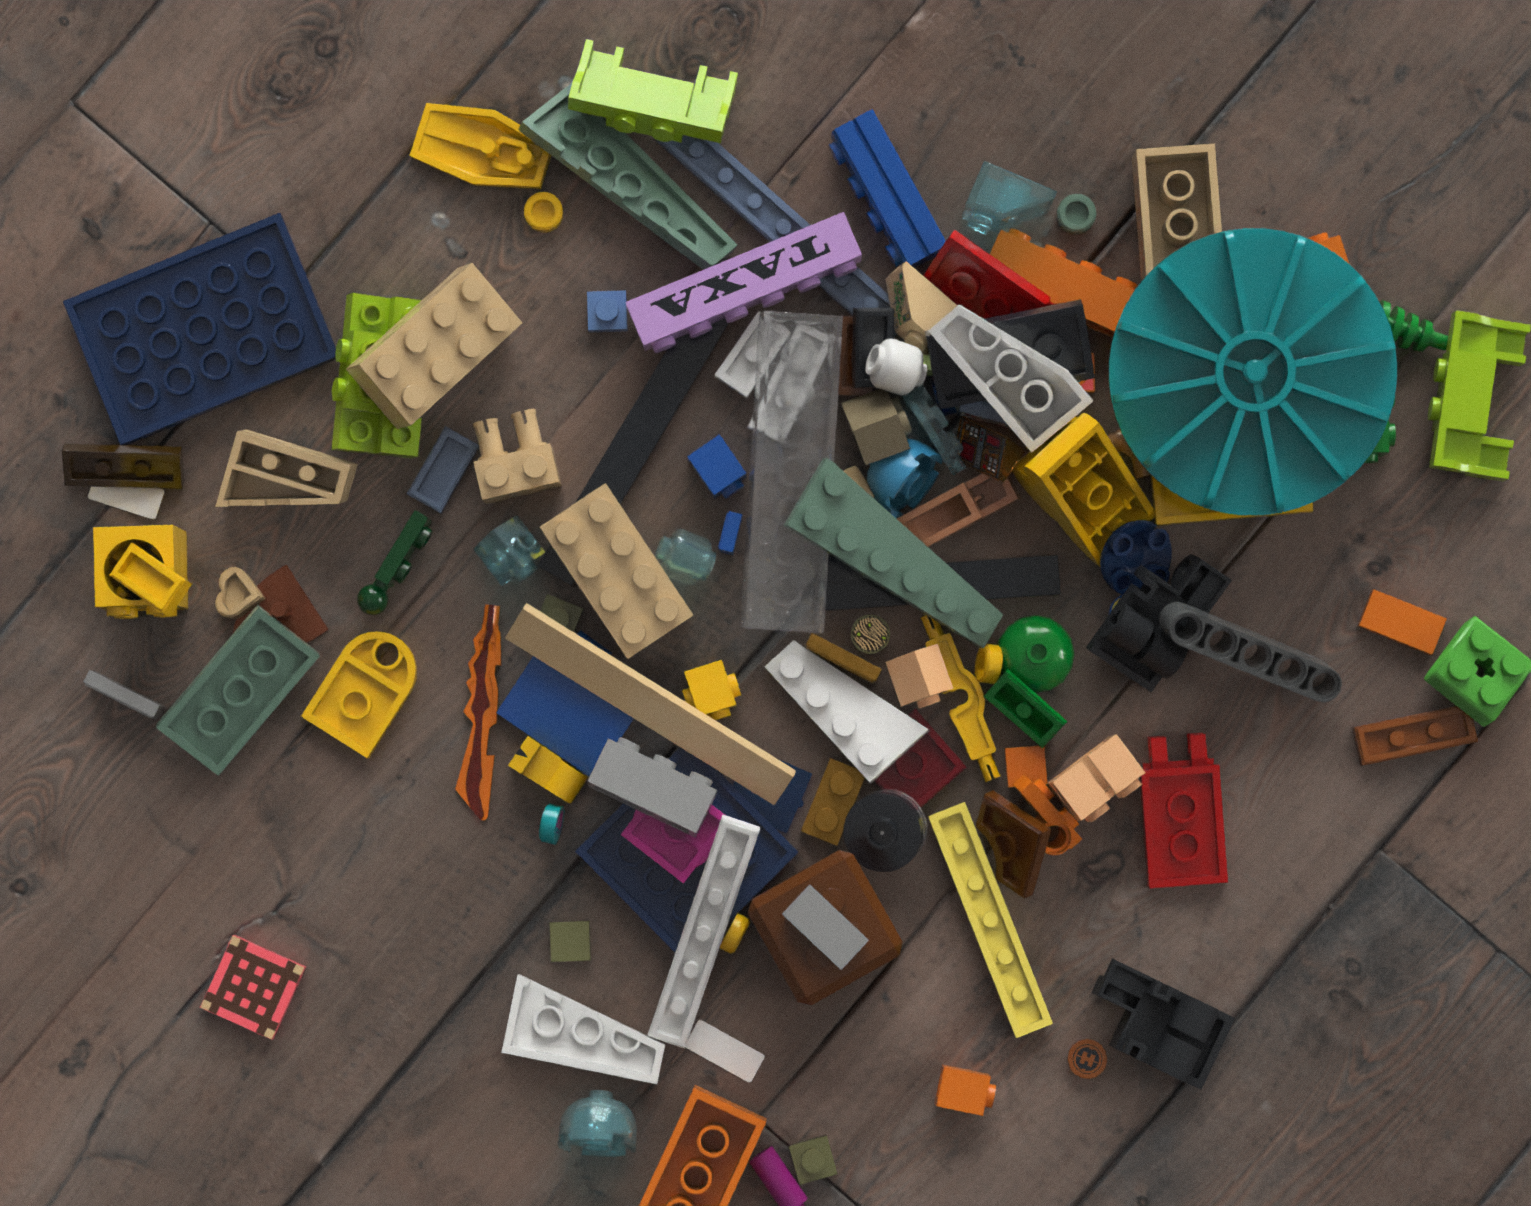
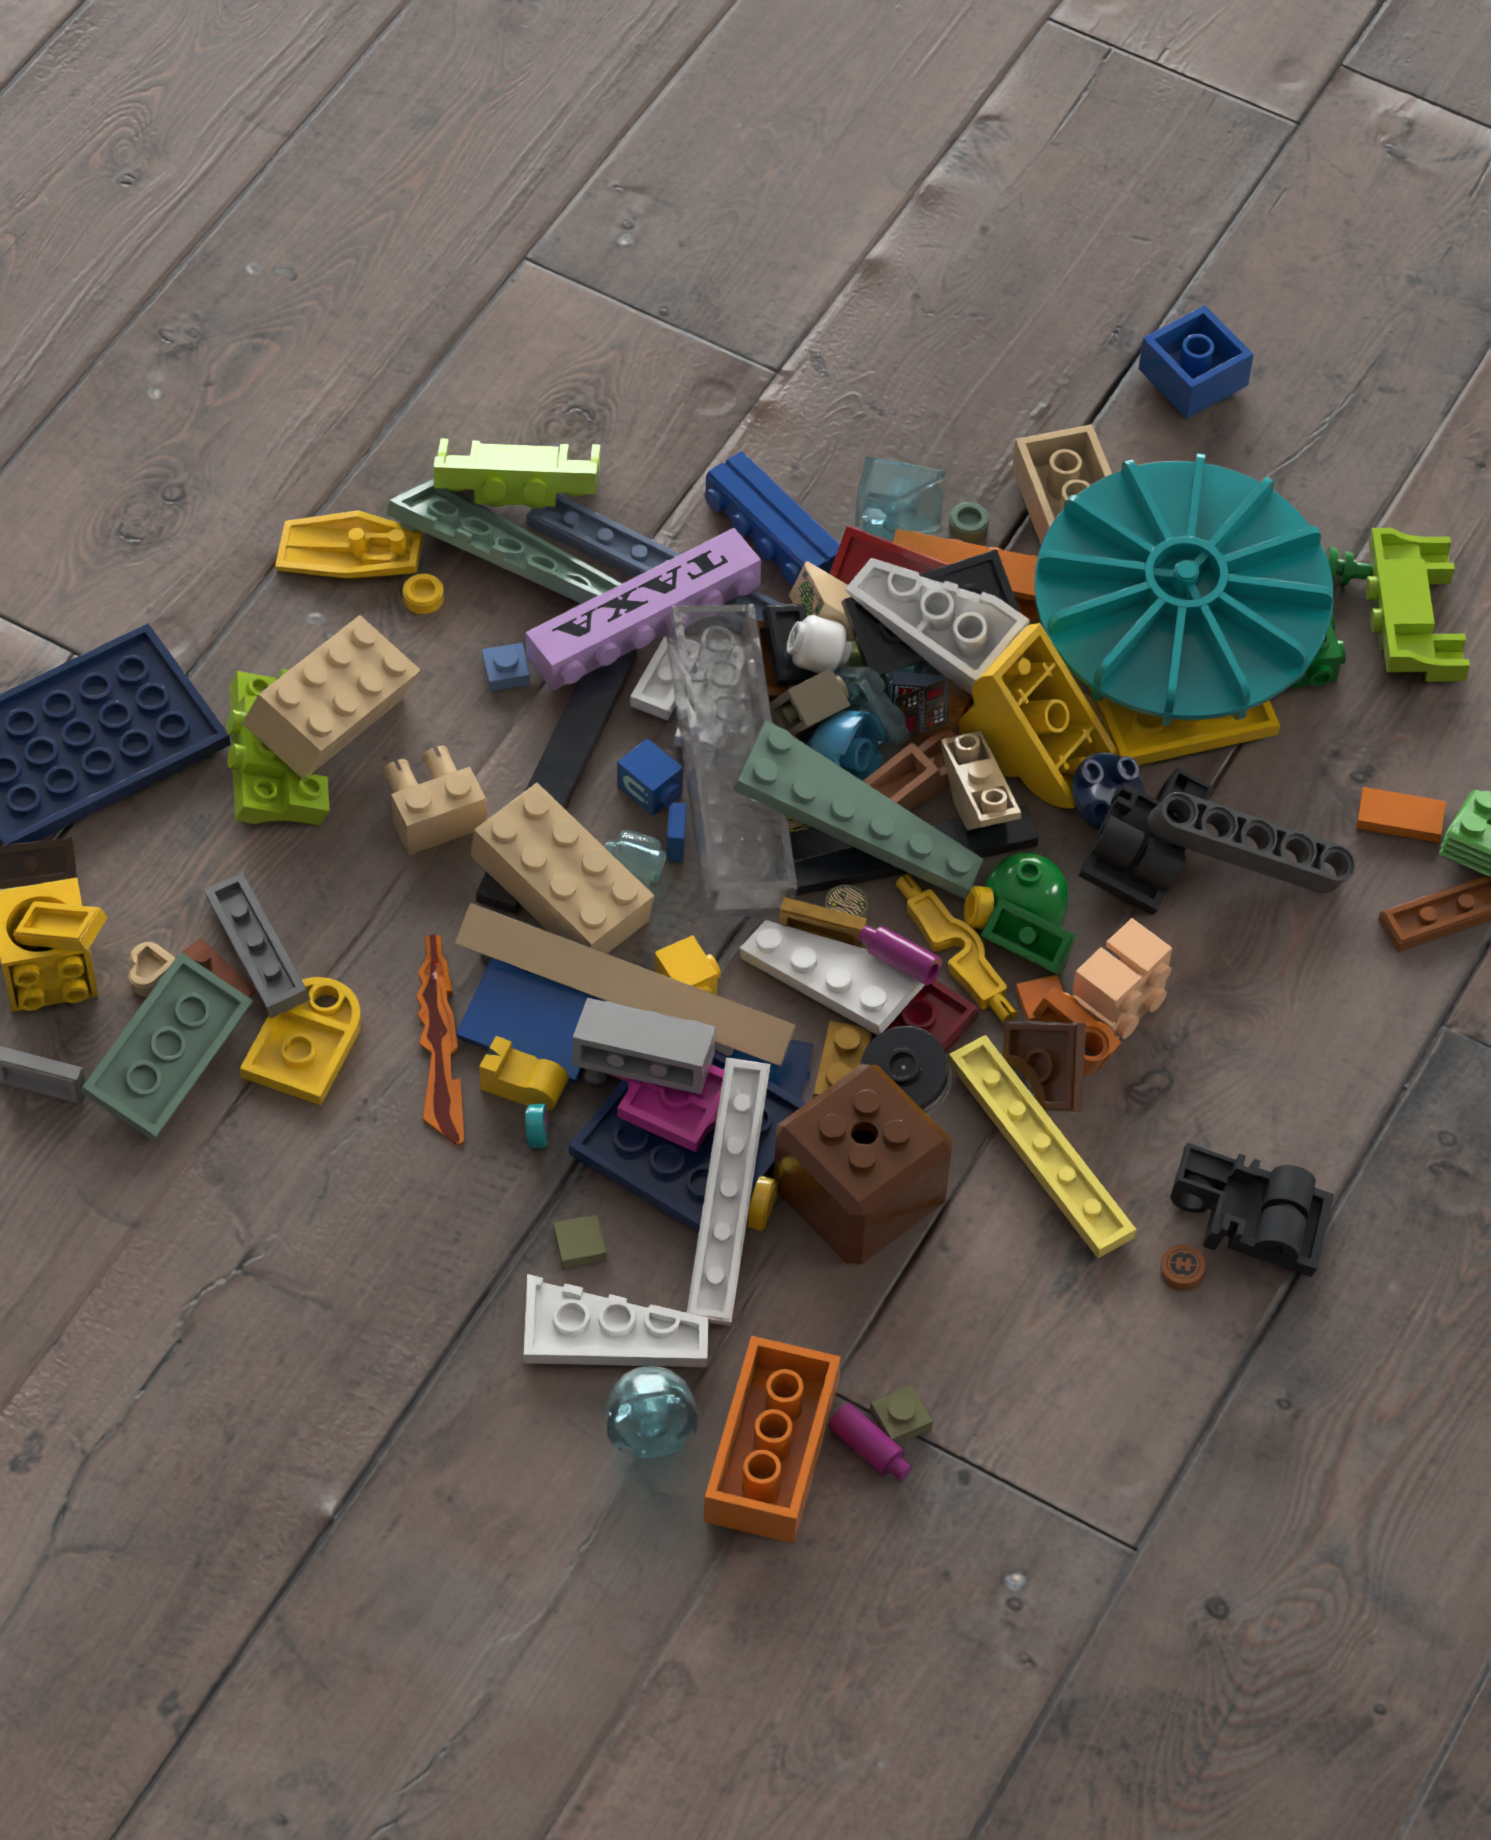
camera: 15 degrees left, 30 degrees down
(253, 987) = (225, 1342): tile -> none
(282, 473) = (187, 843): tan wedge -> none
(331, 593) = (257, 945): none -> dark grey plate
(373, 597) = (322, 909): dark green plate -> none
(443, 470) = (357, 827): sand blue tile -> none
(510, 551) = (444, 877): clear light blue brick -> none
(724, 1051) = (775, 1325): white sticker -> none
(825, 927) = (864, 1122): light grey tile -> none
(903, 716) = (901, 954): none -> magenta cylinder
(919, 676) = (910, 918): light nougat brick -> none
(964, 1090) = (1054, 1312): orange brick -> none
(1014, 545) = (977, 782): none -> tan slope
(1182, 816) = (1223, 1019): red tile -> none
(1338, 68) = (1195, 361): none -> blue brick

